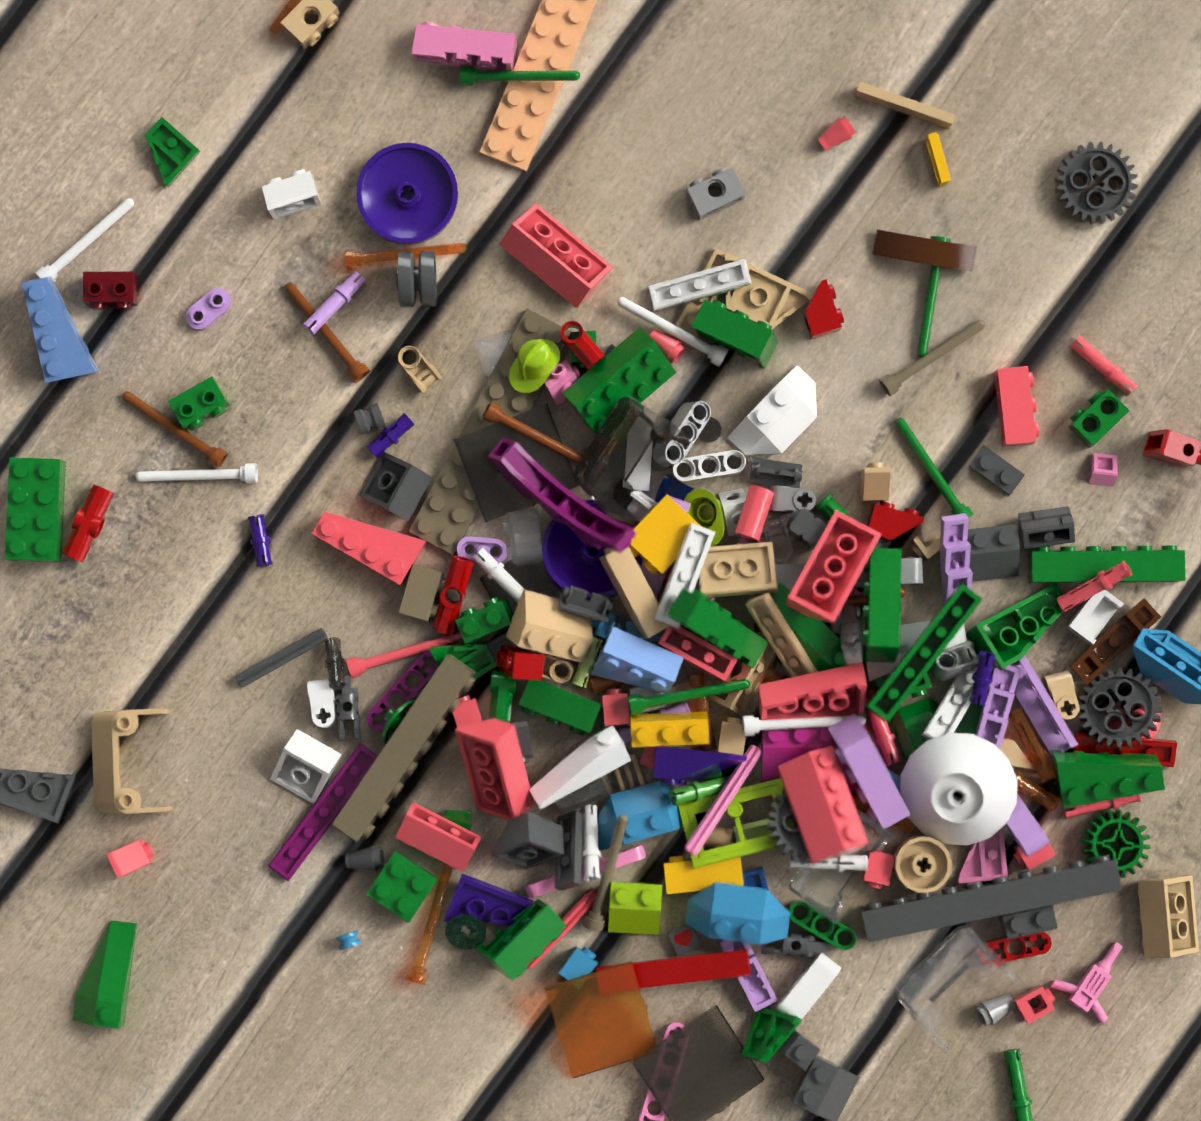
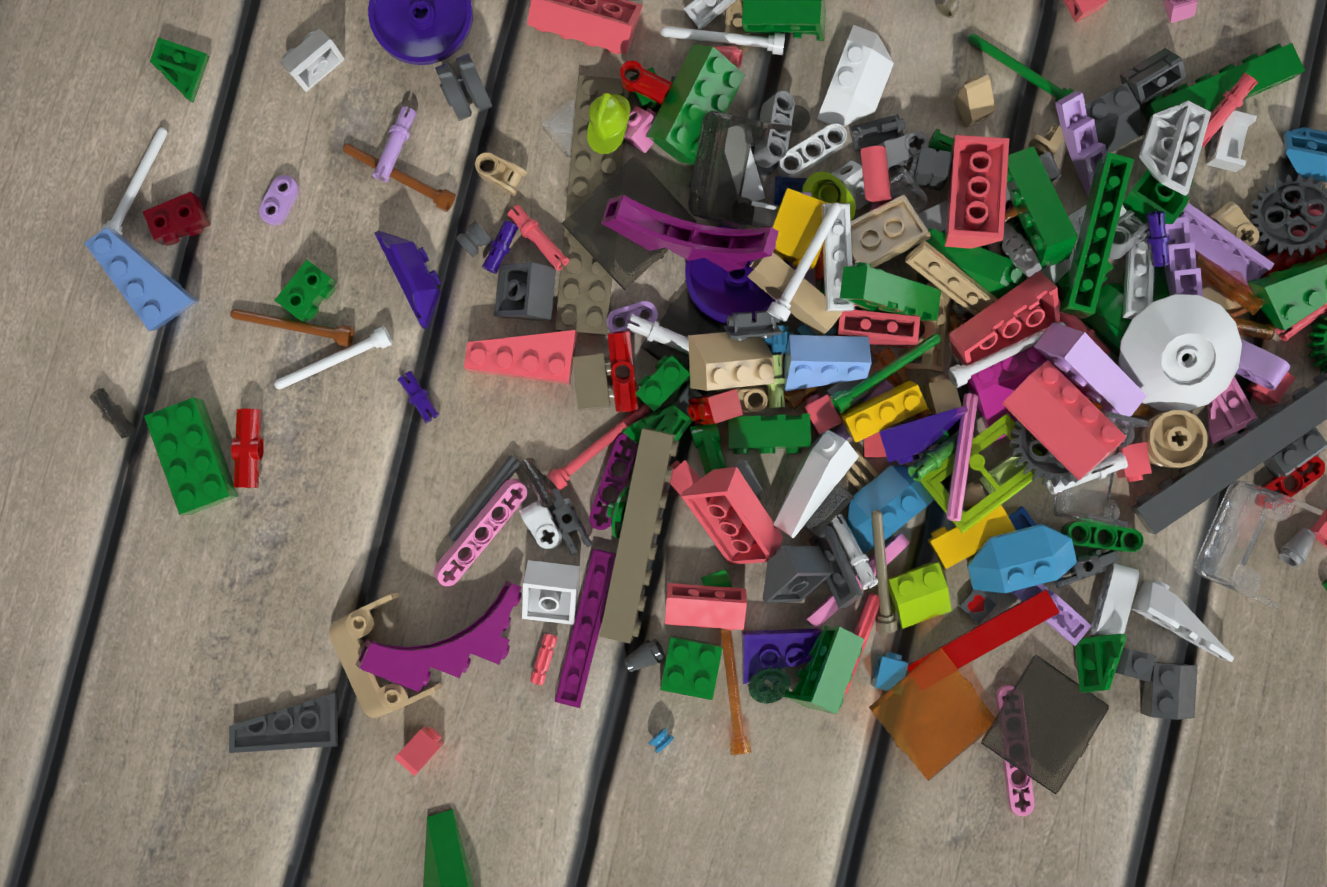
camera: 20 degrees left, 0 degrees up
(193, 785) = (482, 638): none -> magenta arch
(258, 696) = (477, 545): none -> bright pink beam
(274, 823) = (543, 659): none -> coral axle
(301, 428) = (413, 275): none -> dark purple wedge
(356, 259) = (398, 96): clear orange piece -> none
(424, 431) = (531, 230): none -> coral pin
(495, 414) = (591, 182): dark orange piece -> none
(525, 538) = (668, 288): clear brick -> none
(614, 599) = (781, 306): none -> white piece
(852, 1016) = (1170, 612): none -> white wedge
(892, 522) = (1007, 127): red slope -> none
(996, 470) = (1080, 45): dark grey plate -> none
(1030, 599) = (1174, 144): none -> white wedge
(1114, 641) = (1259, 155): reddish brown slope -> none

